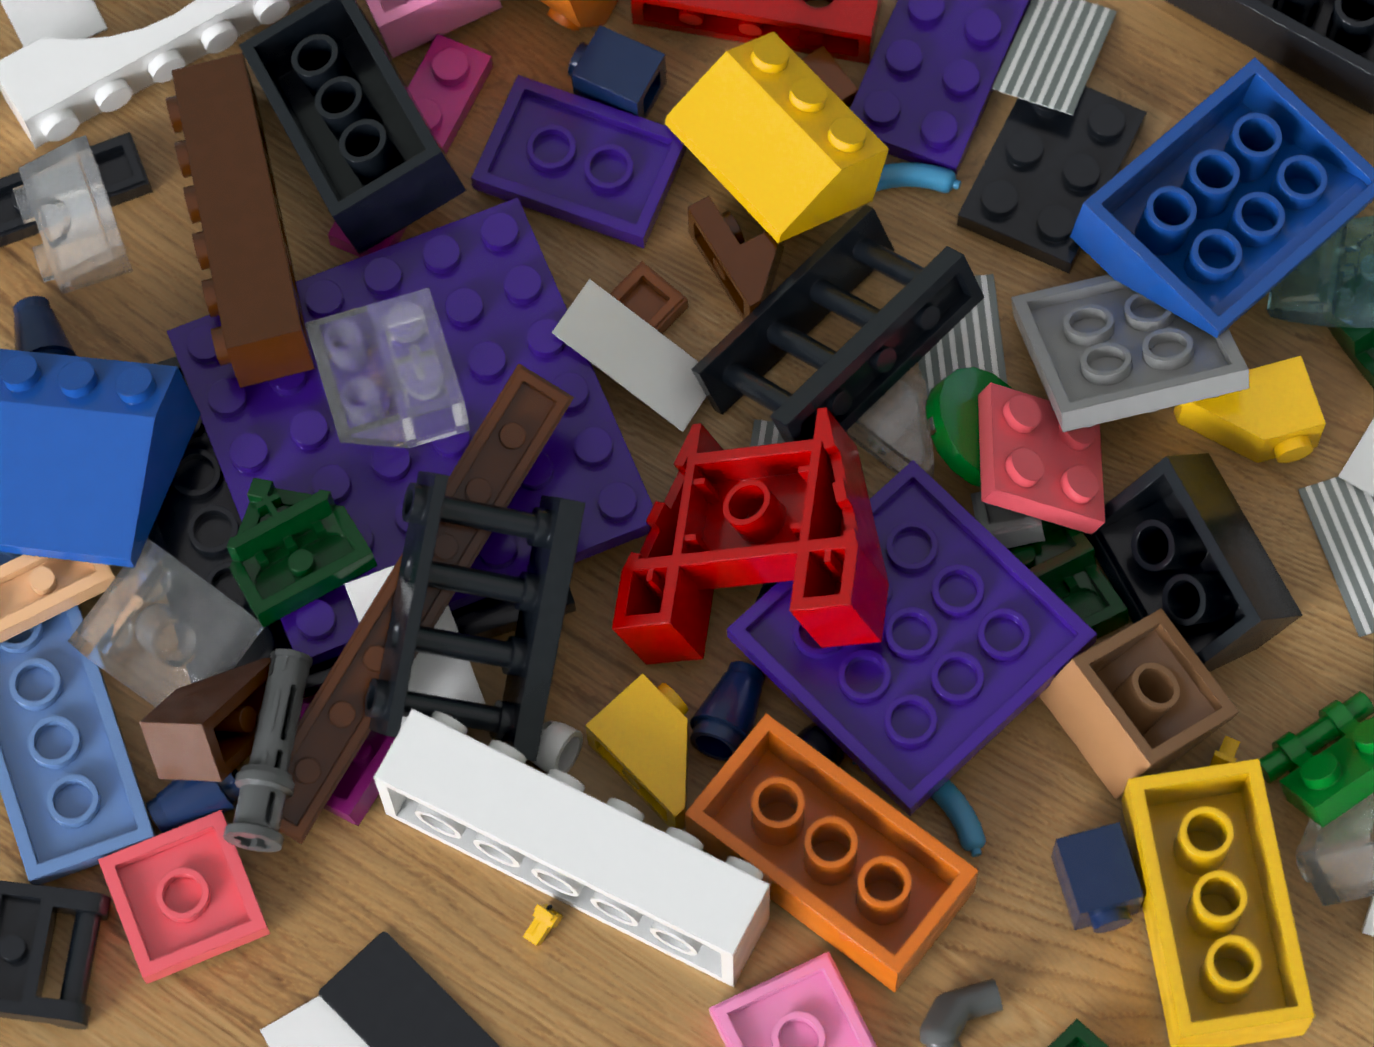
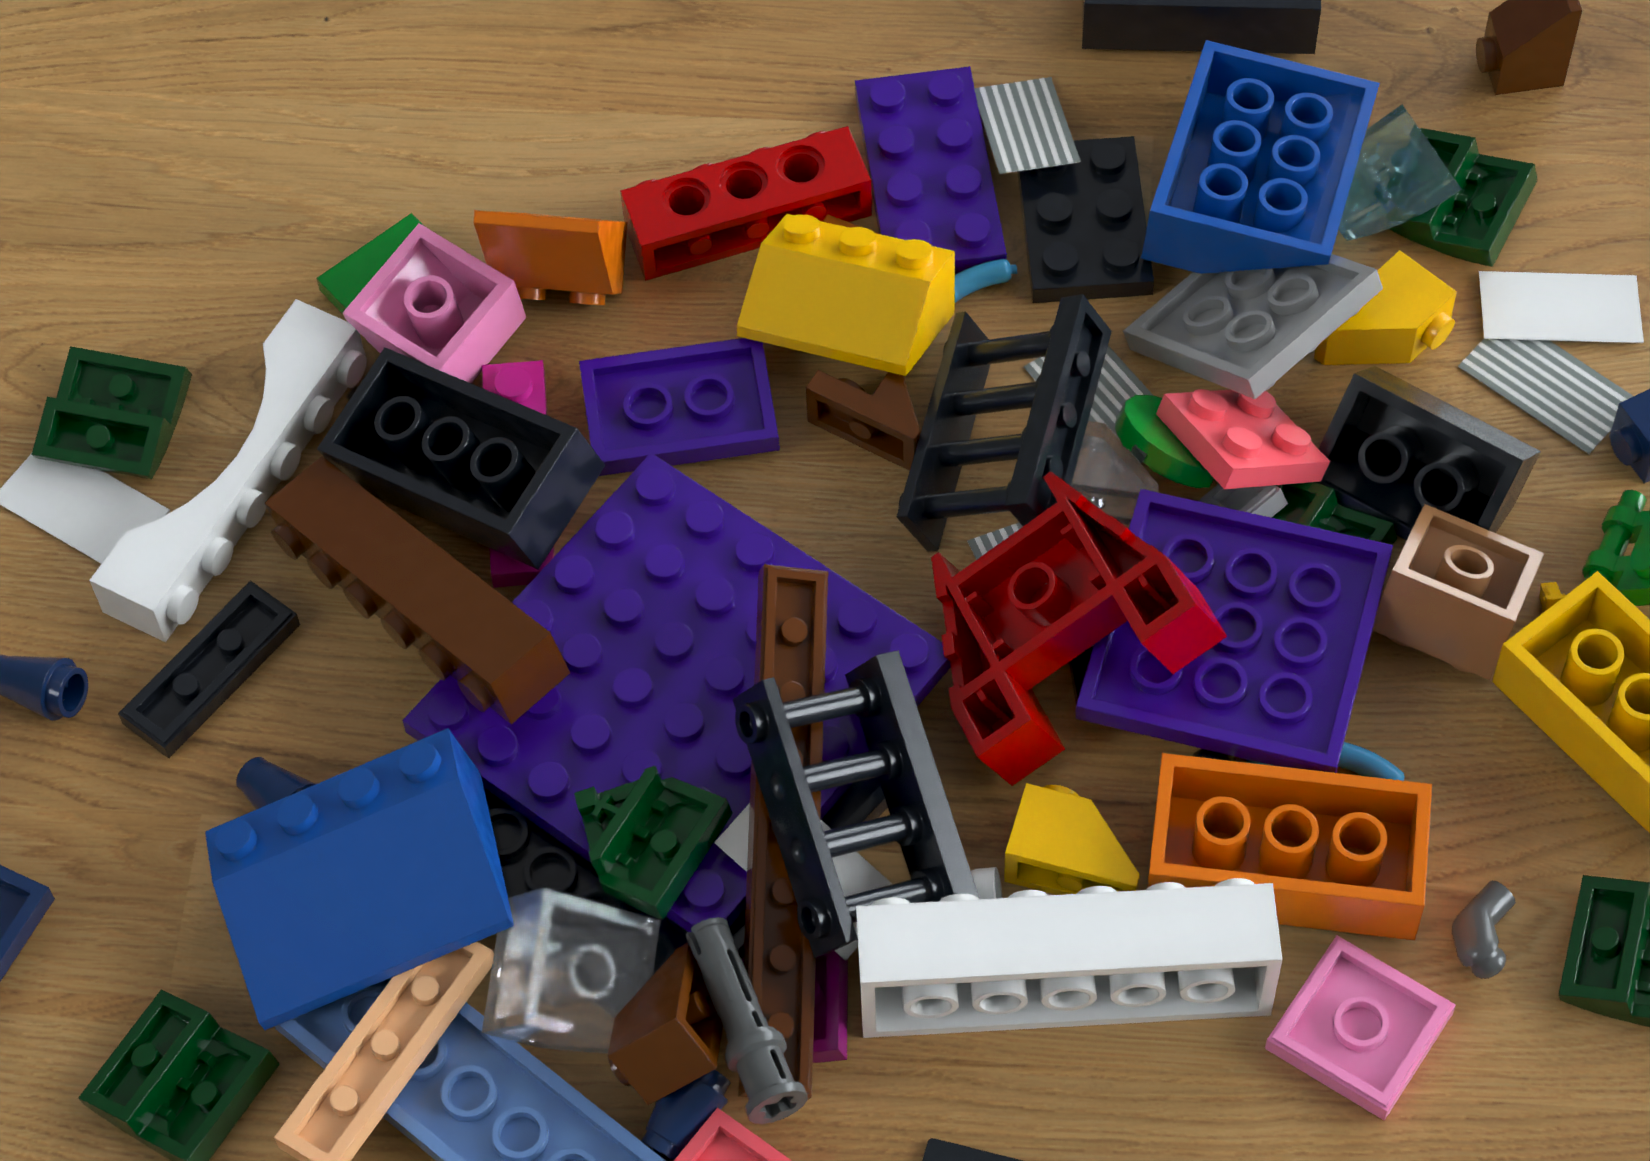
camera: 30 degrees left, 10 degrees down
(73, 217) = (254, 664): clear slope -> none
(389, 373) = (649, 634): clear slope -> none
(544, 921) = (1070, 1045): yellow piece -> none
(618, 72) = (665, 314): dark blue brick -> none
(632, 354) = (836, 532): white sticker -> none
(651, 297) = (810, 496): dark orange tile -> none
(728, 711) = (1117, 783): dark blue cone -> none
(1097, 878) = (1521, 749): dark blue brick -> none

